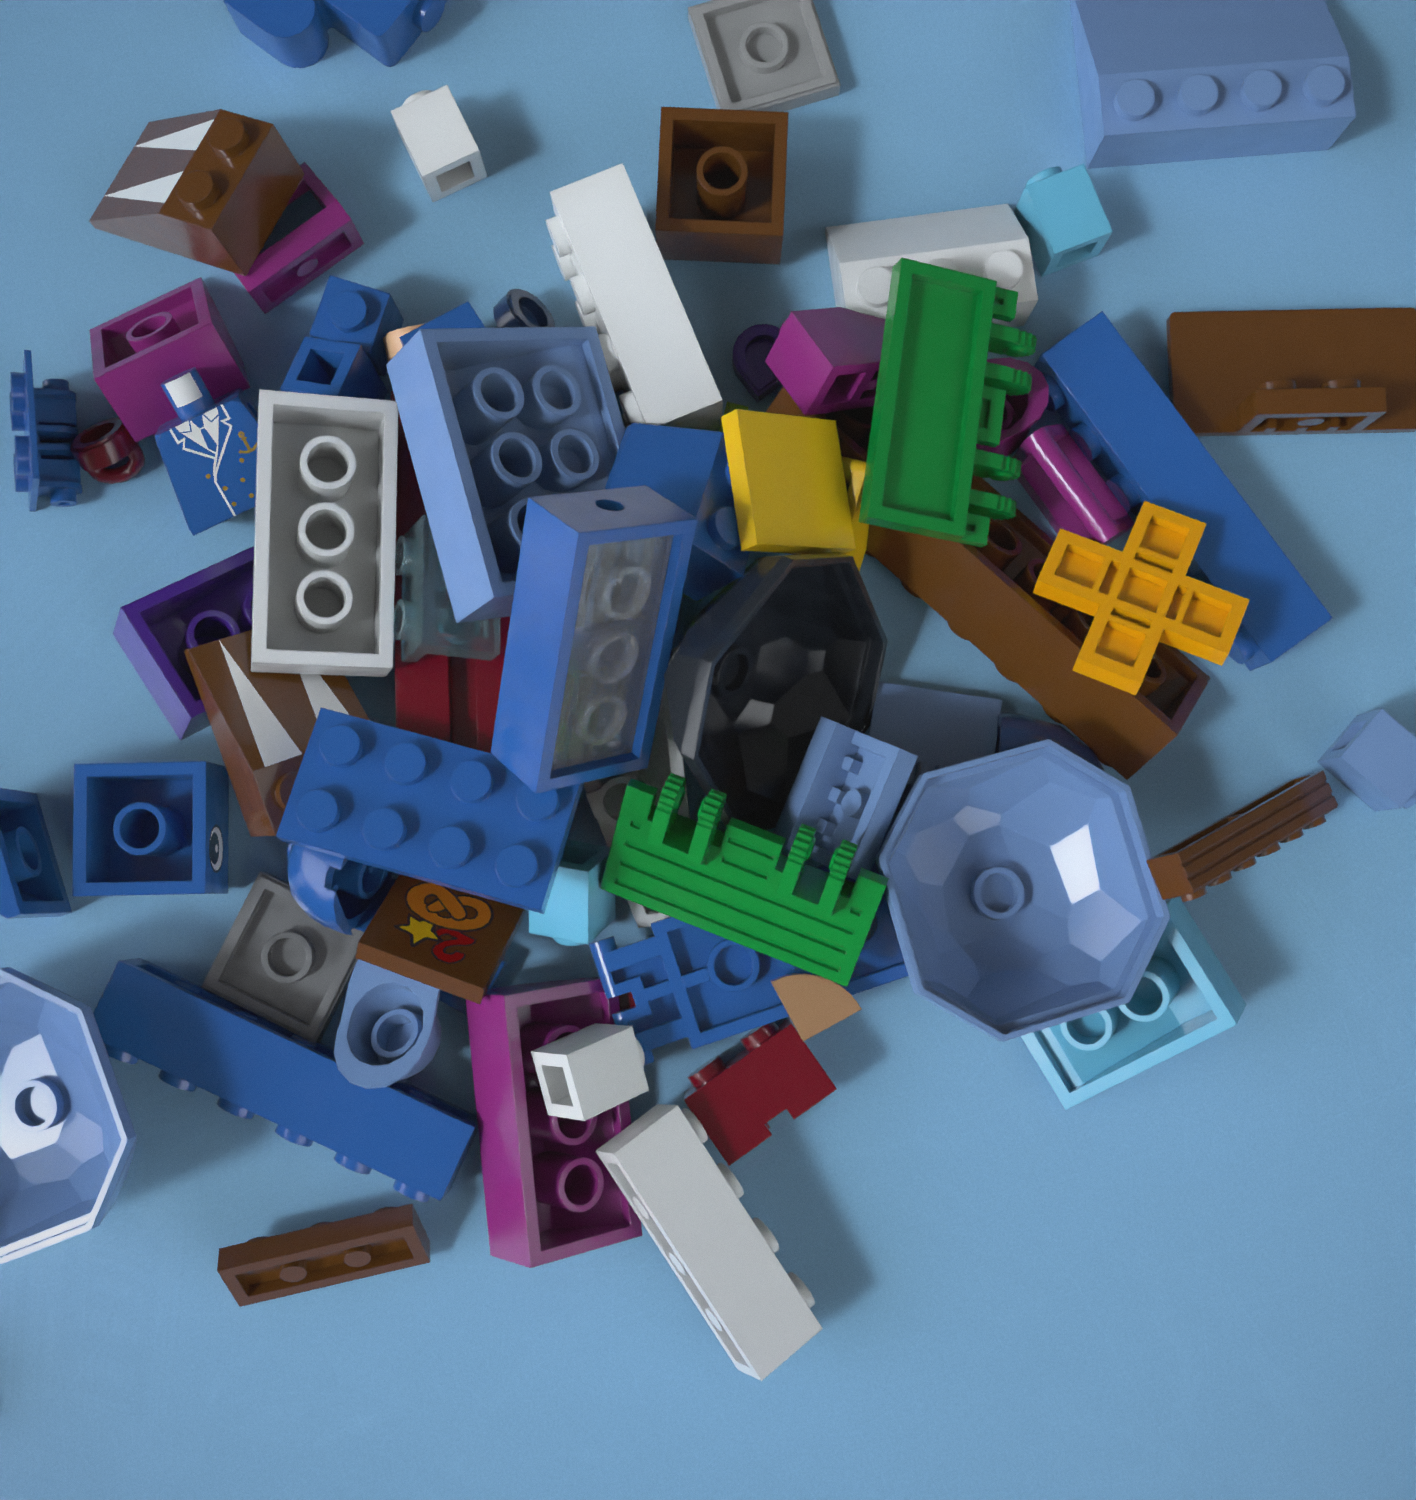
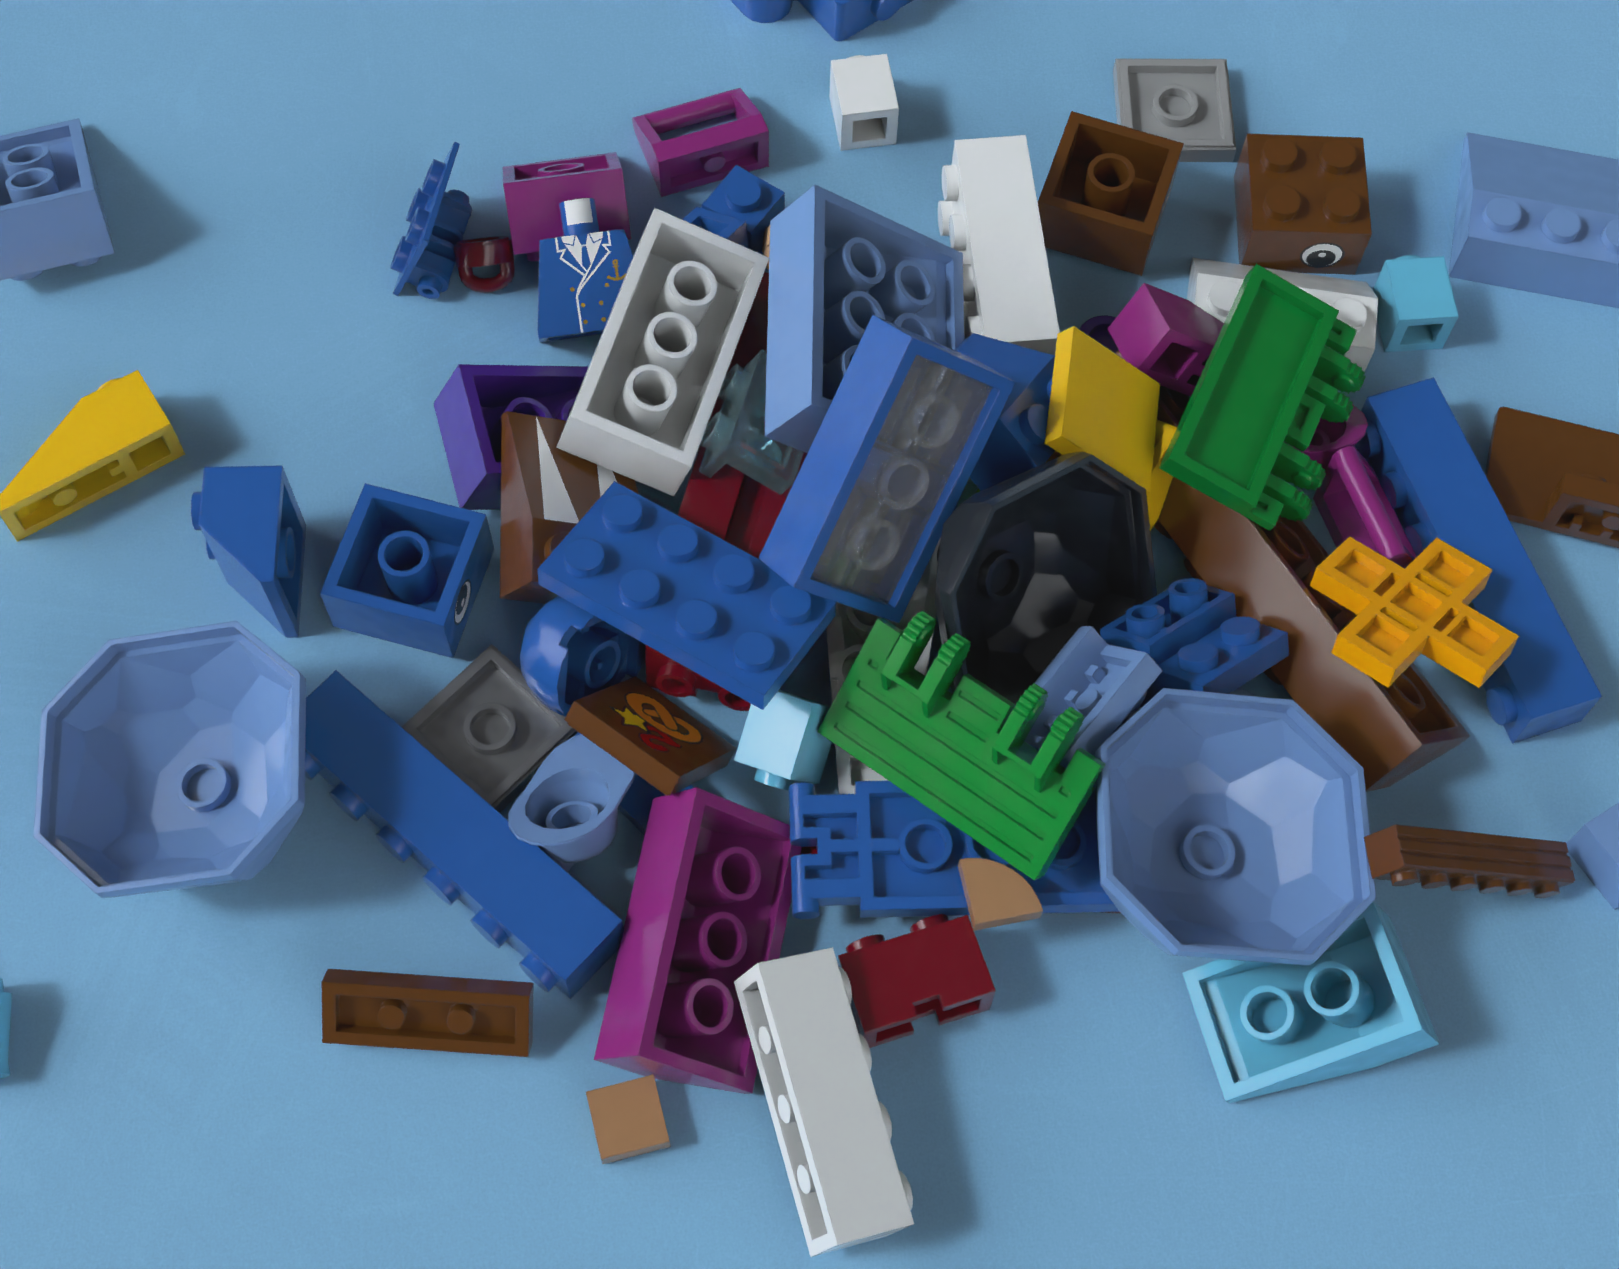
camera: 15 degrees right, 20 degrees down
(202, 188) = (649, 76): reddish brown slope -> none
(538, 1294) = (628, 1119): none -> medium nougat tile
(590, 1071) = (757, 887): white brick -> none
(924, 134) = (1302, 203): none -> reddish brown brick
(933, 686) = (1197, 639): none -> blue brick

